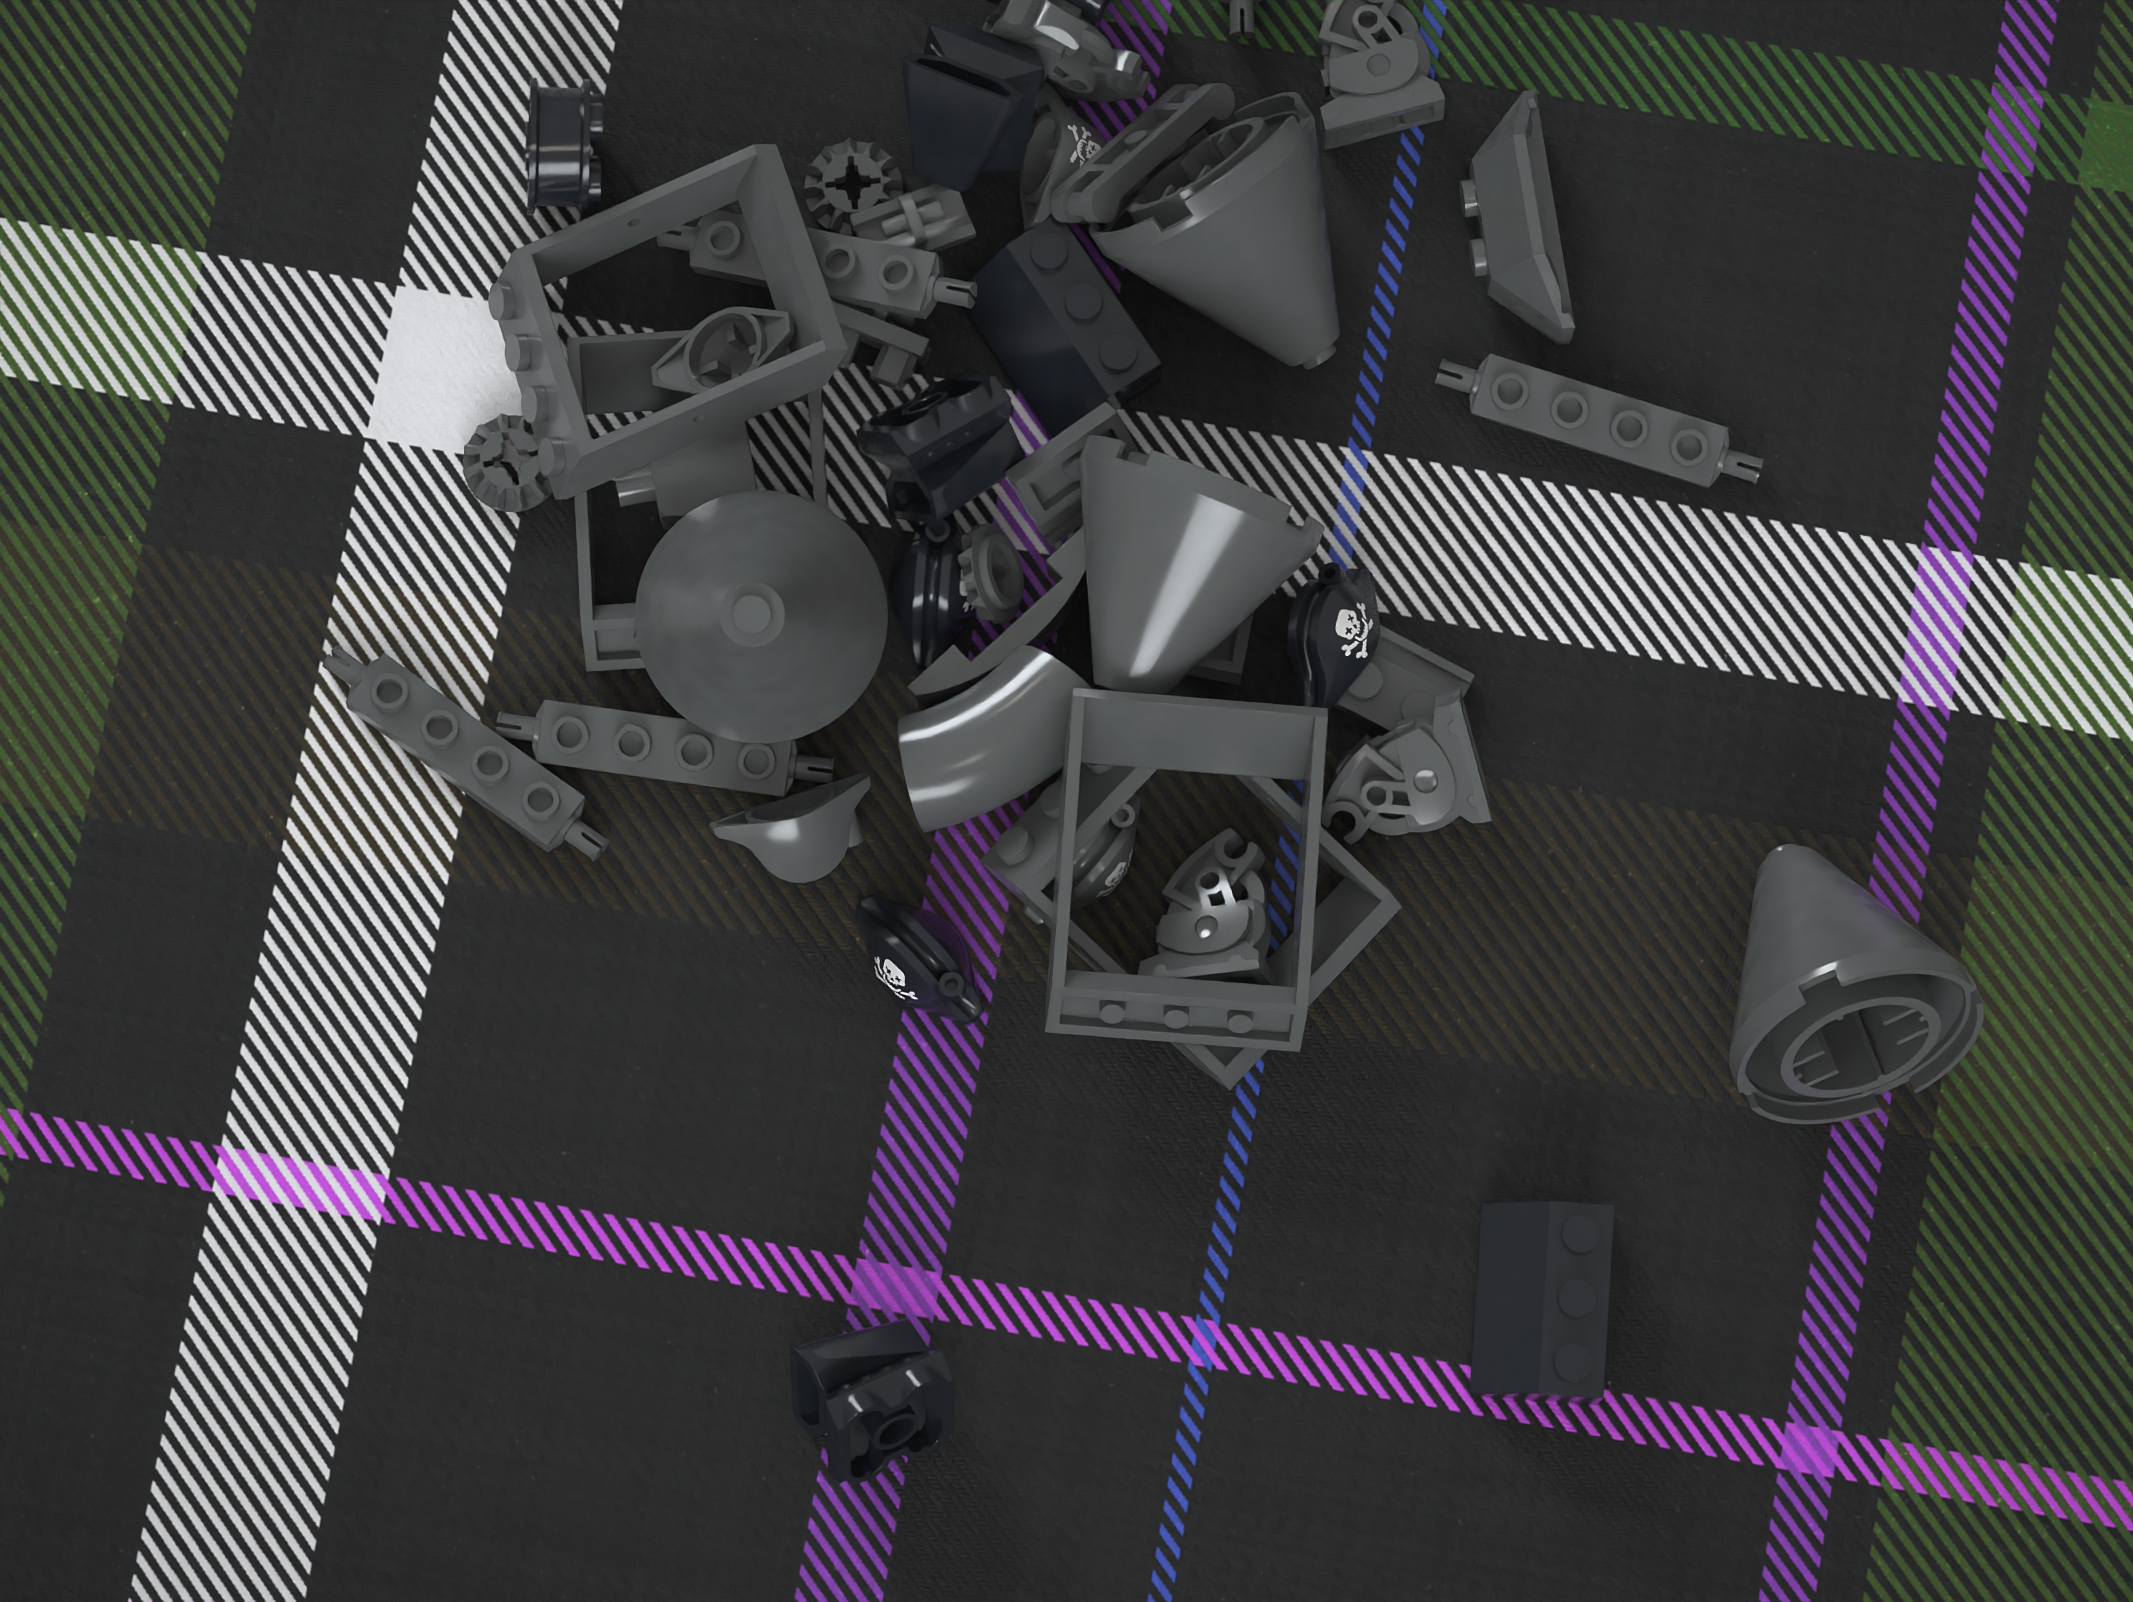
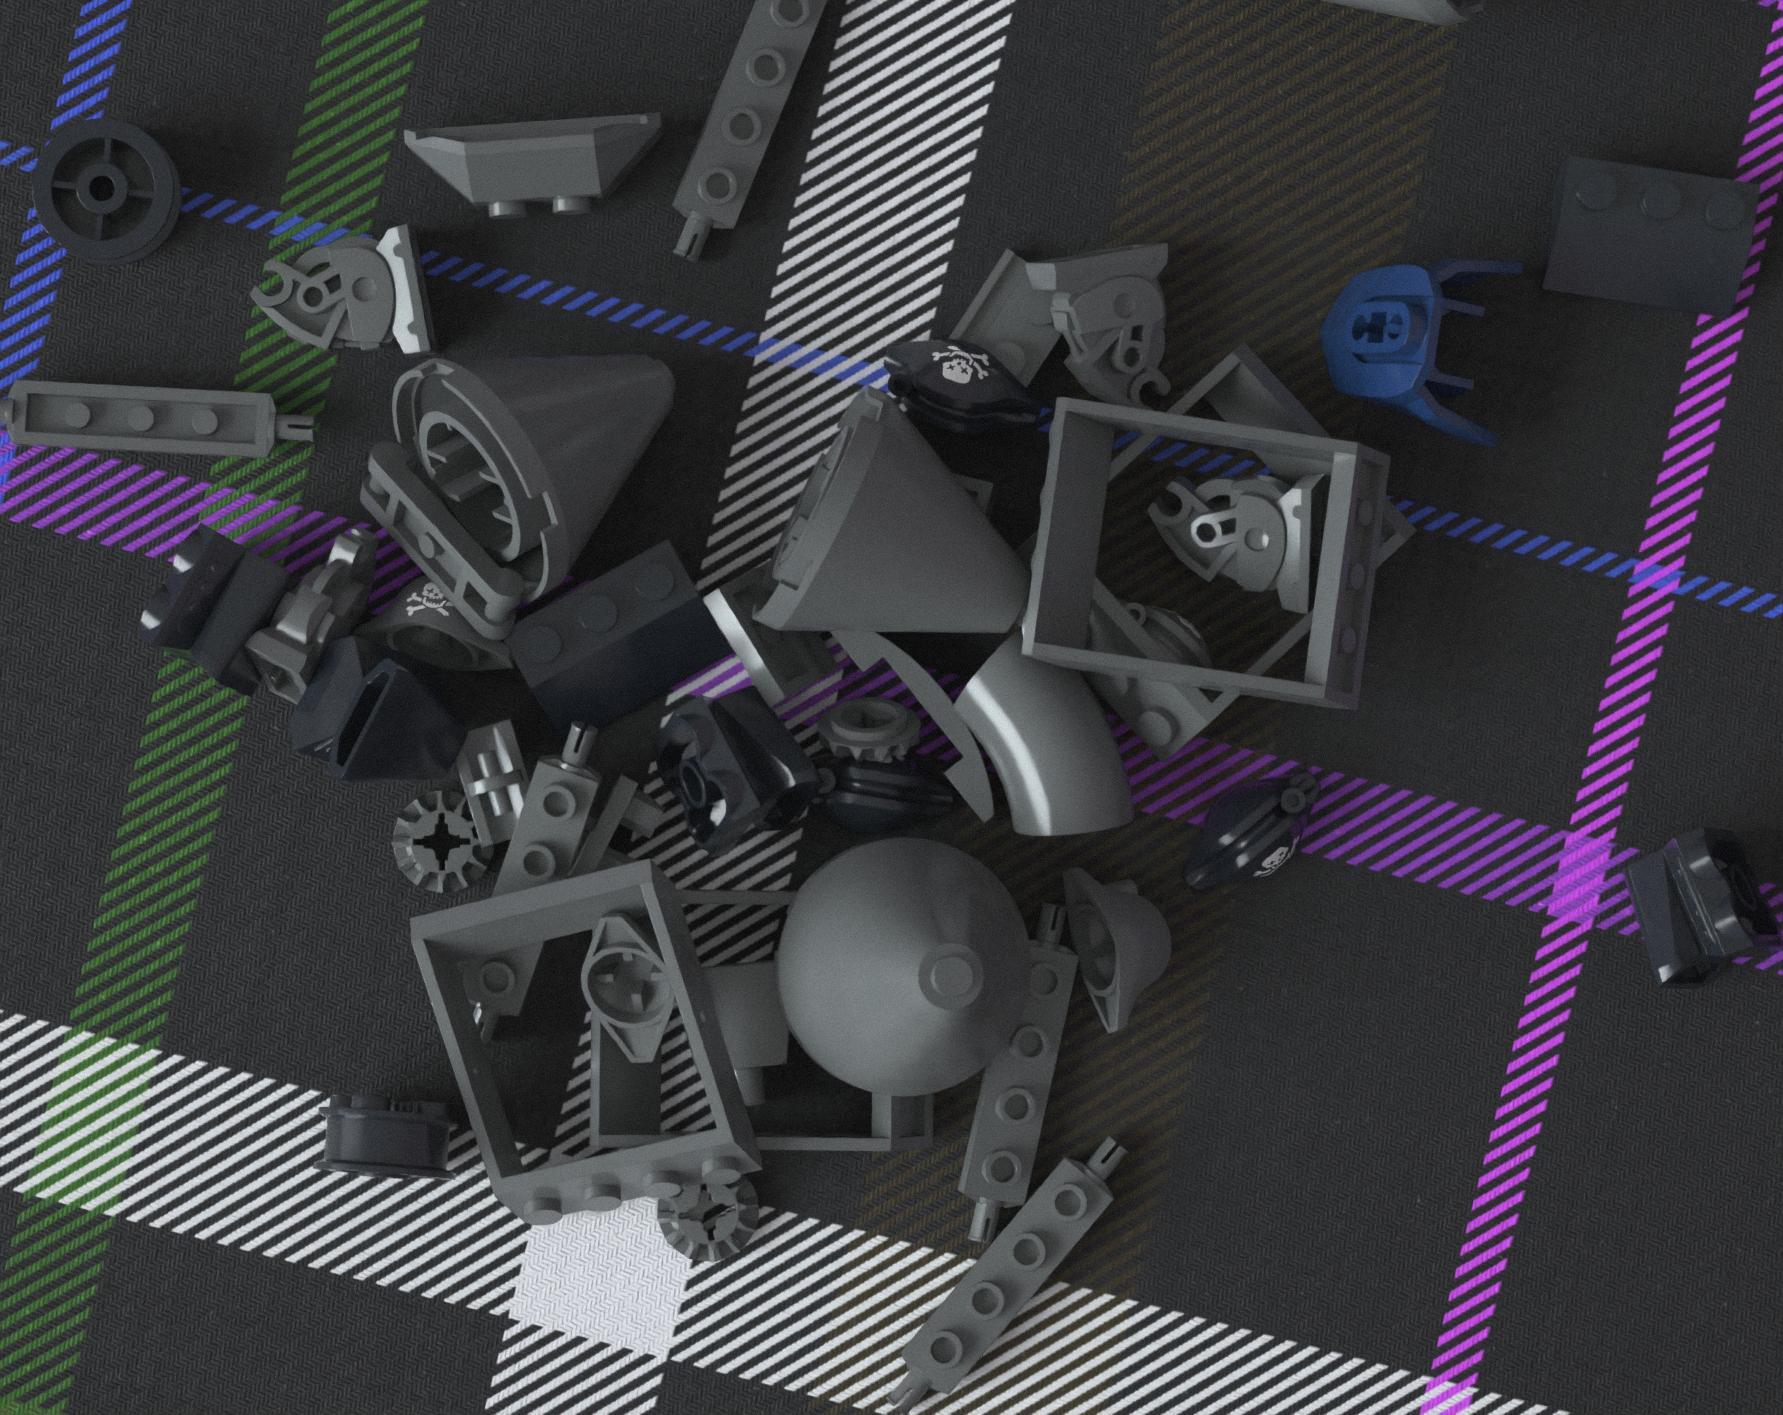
camera: 85 degrees left, 10 degrees up
(1424, 1035) = (1386, 338): none -> dark blue piece

